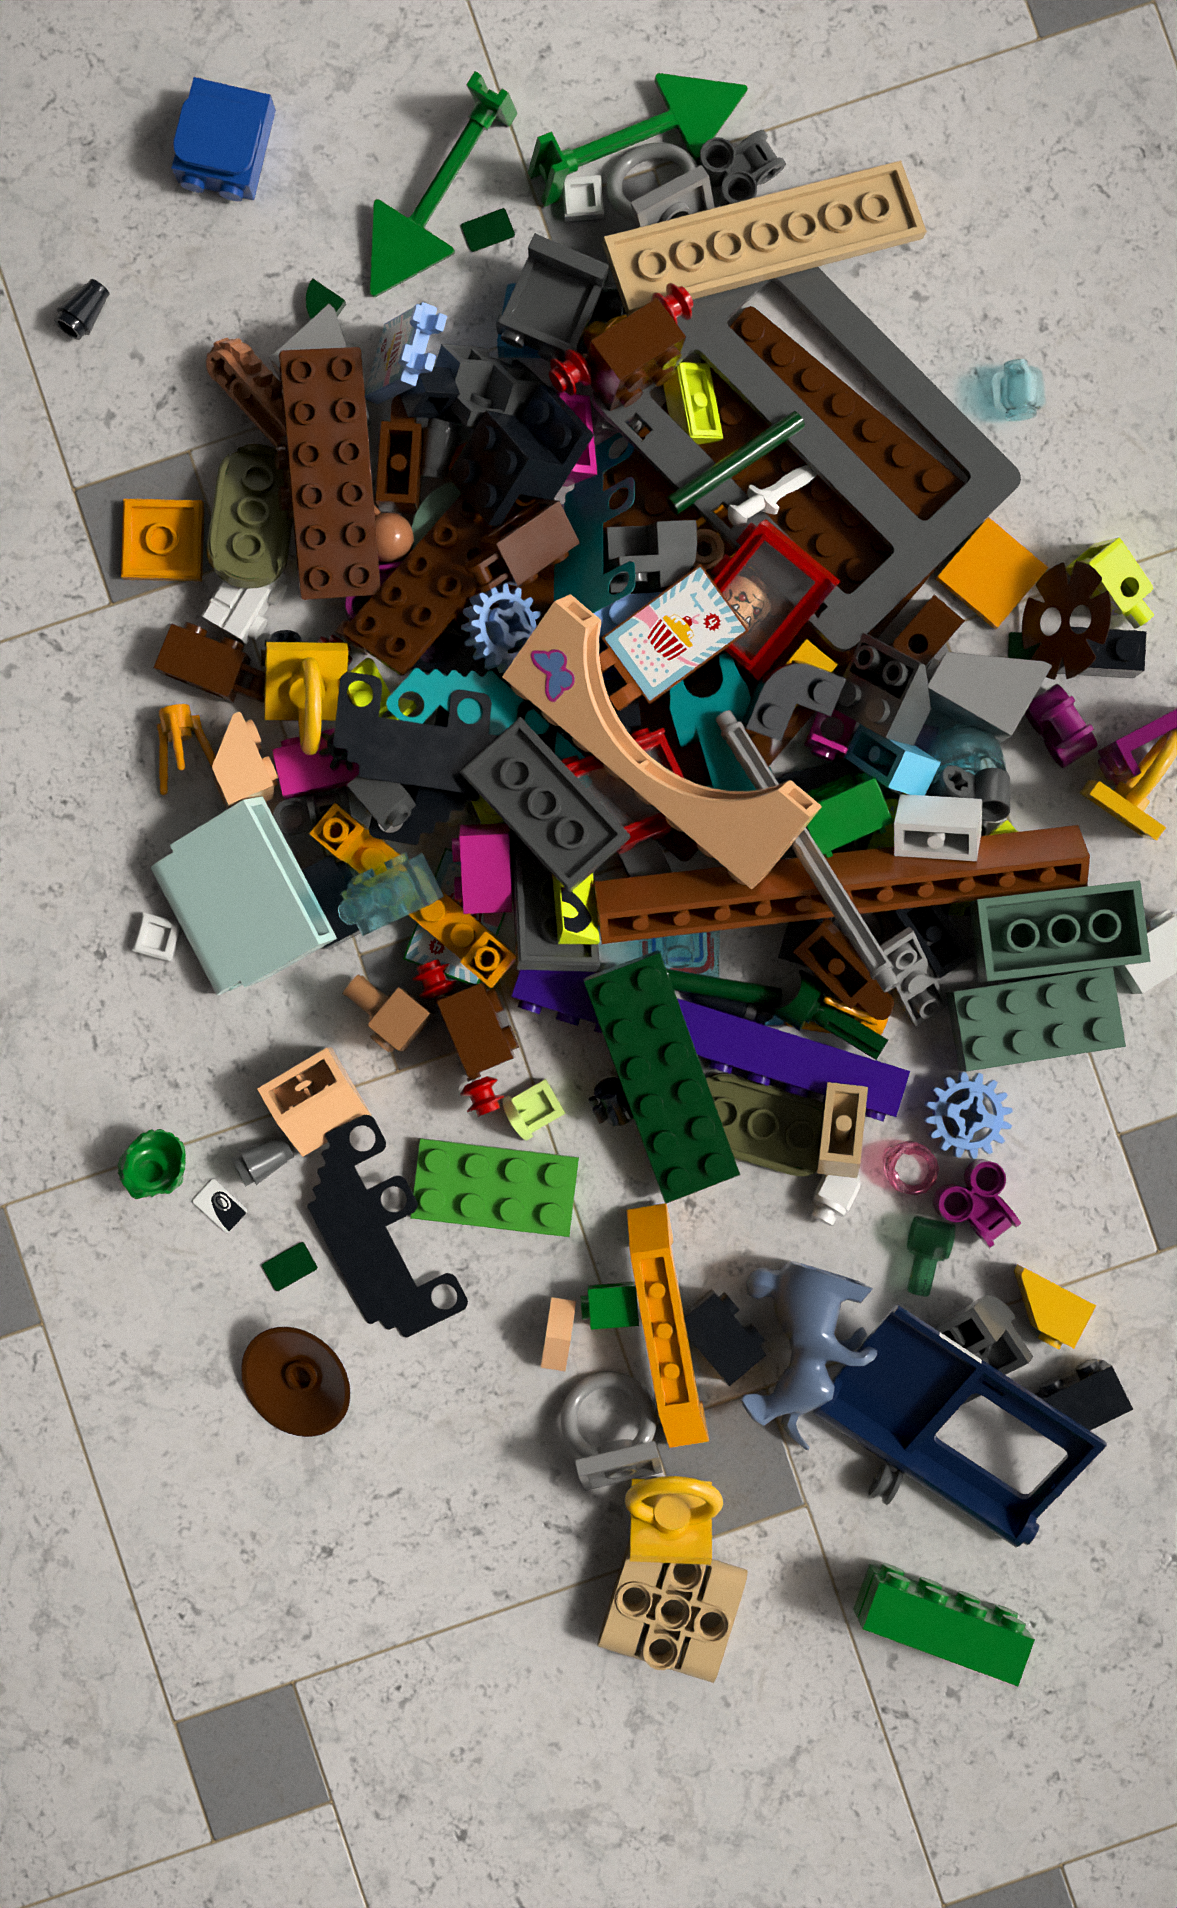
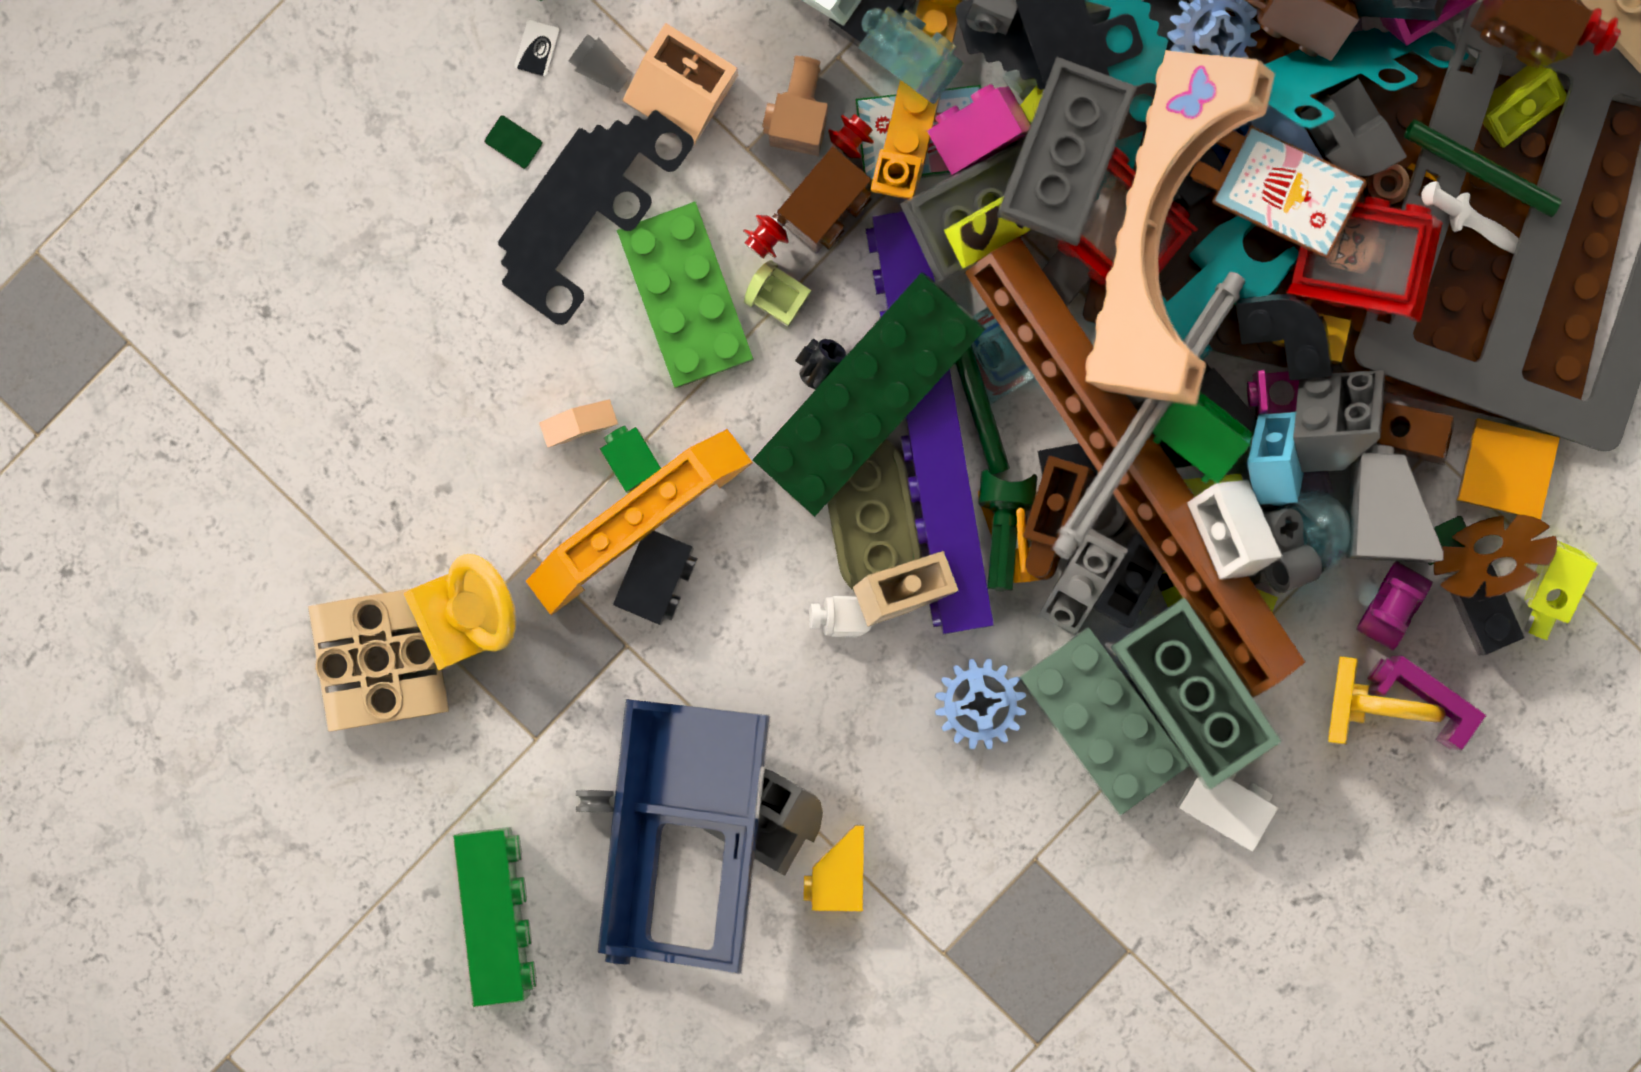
camera: 75 degrees right, 0 degrees up
(295, 1381) = (411, 200): reddish brown hat -> none
(618, 1459) = (491, 535): light grey tile -> none
(738, 1008) = (969, 437): black piece -> none
(808, 1313) = (717, 644): sand blue animal -> none
(890, 1159) = (908, 653): clear pink piece -> none
(930, 1243) = (841, 729): clear green axle -> none
(982, 1208) = (901, 759): magenta piece -> none
(1088, 1396) = (772, 950): black piece -> none

